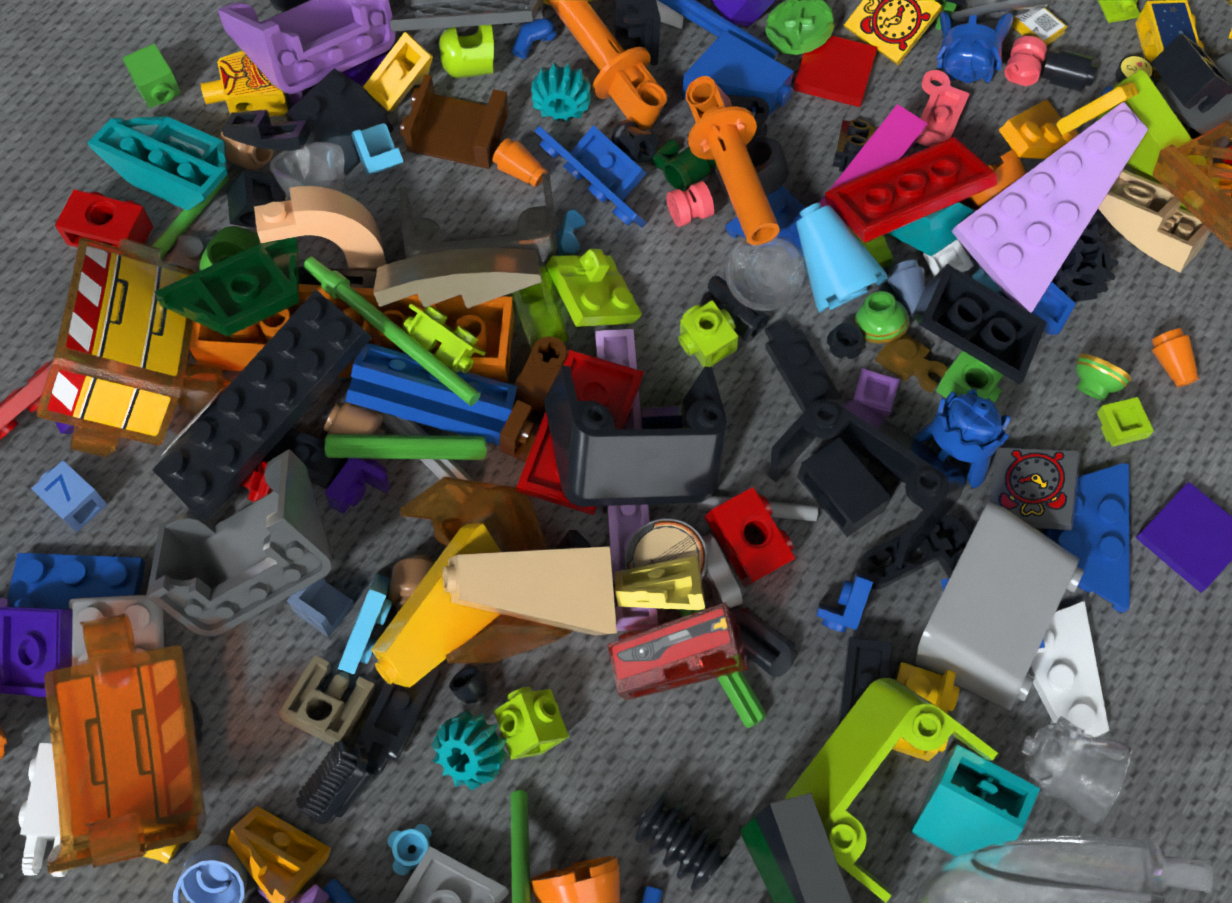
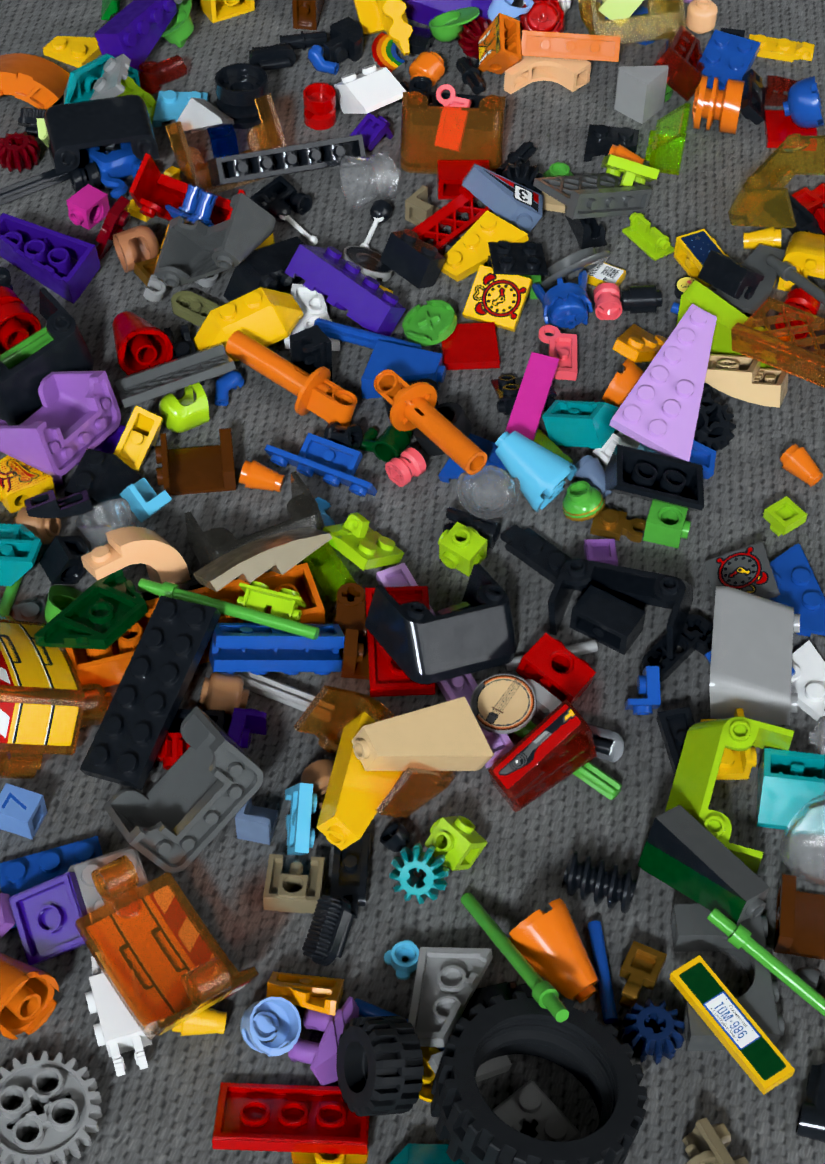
camera: 20 degrees left, 15 degrees down
(192, 421) = (95, 726): white sticker -> none
(405, 447) = (272, 690): bright green axle -> none
(561, 92) = (272, 417): teal gear -> none
(662, 585) = (513, 713): light yellow wing -> none
(849, 333) = (563, 525): black plate -> none
(910, 189) = (568, 404): red tile -> none
(968, 431) = (680, 548): blue hat -> none
(1097, 107) = (674, 314): yellow tile -> none
(1099, 377) = (754, 492): bright green piece -> none

